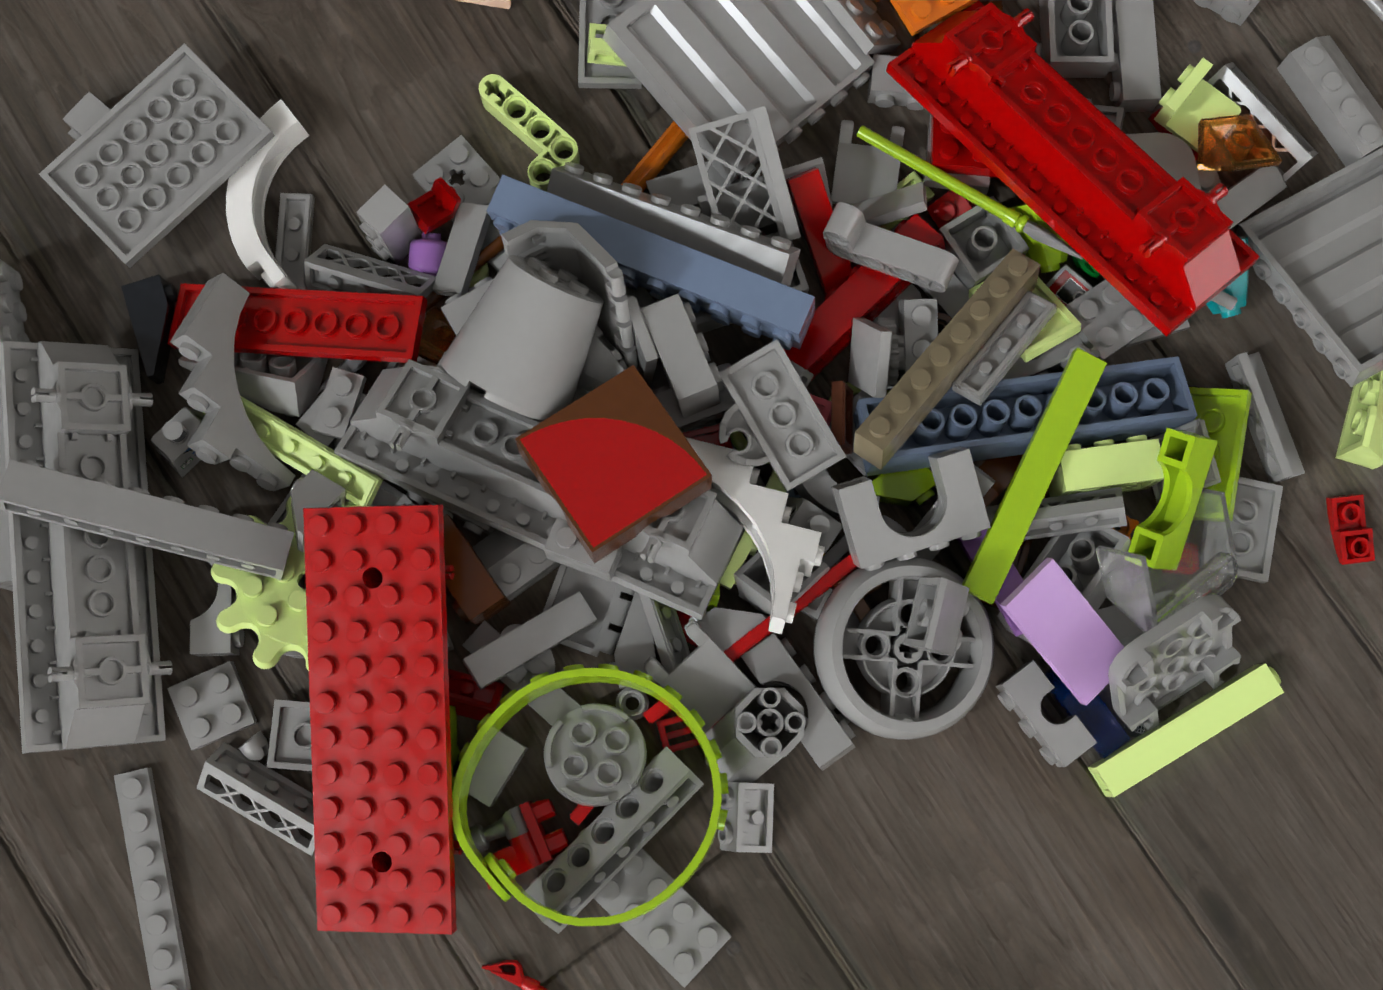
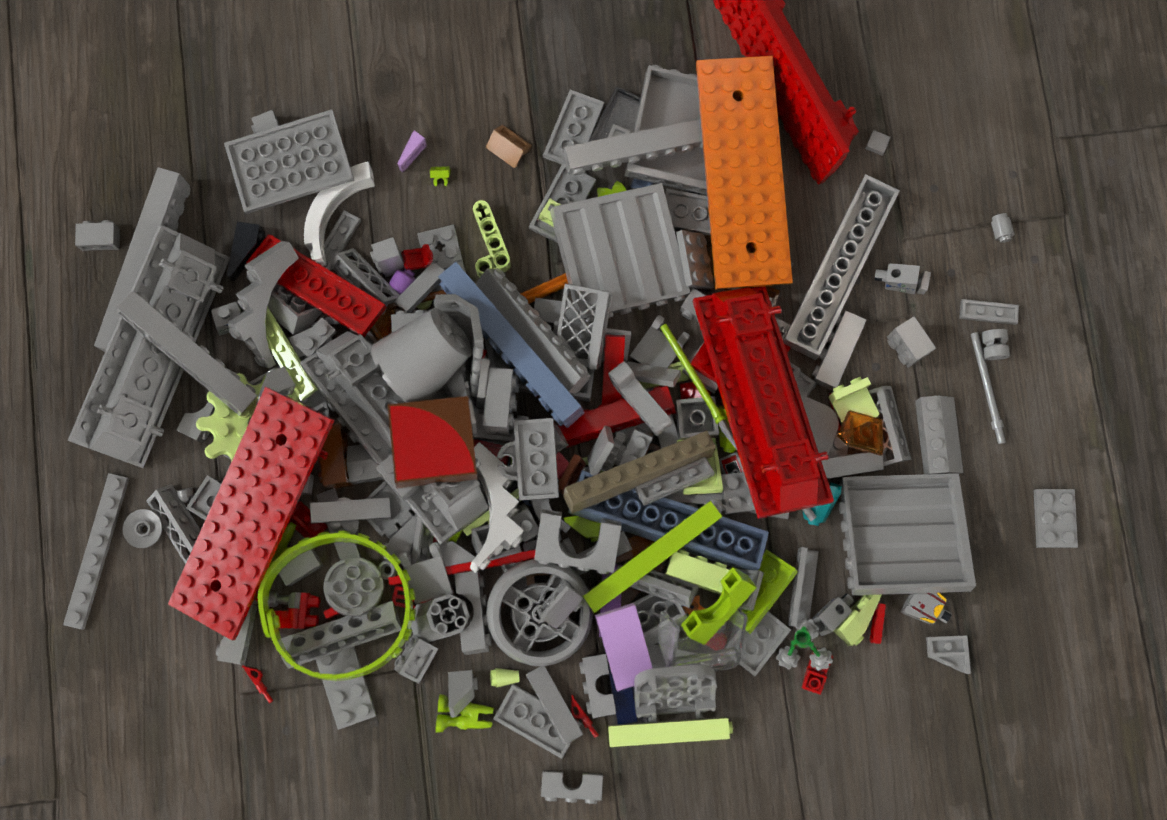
camera: 30 degrees right, 0 degrees up
(197, 838) = (133, 528): none -> light grey dish
(212, 705) = (175, 462): light grey plate -> none
(340, 49) = (413, 148): none -> lavender slope
(400, 67) = (440, 173): none -> lime tile
(462, 949) = (236, 650): none -> light grey slope
(844, 828) = (461, 690): none -> light grey slope
(875, 862) = (468, 716): none -> lime piece
(894, 776) = (503, 677): none -> yellowish green cone
(980, 816) = (528, 718): none -> light grey tile
(995, 778) = (554, 705): none -> light grey tile
(1050, 776) = (584, 718): none -> red hand
(1113, 877) = (554, 787): none -> light grey arch
(1321, 484) = (803, 638): none -> light grey plant
(1331, 435) = (833, 614): none -> light grey torso

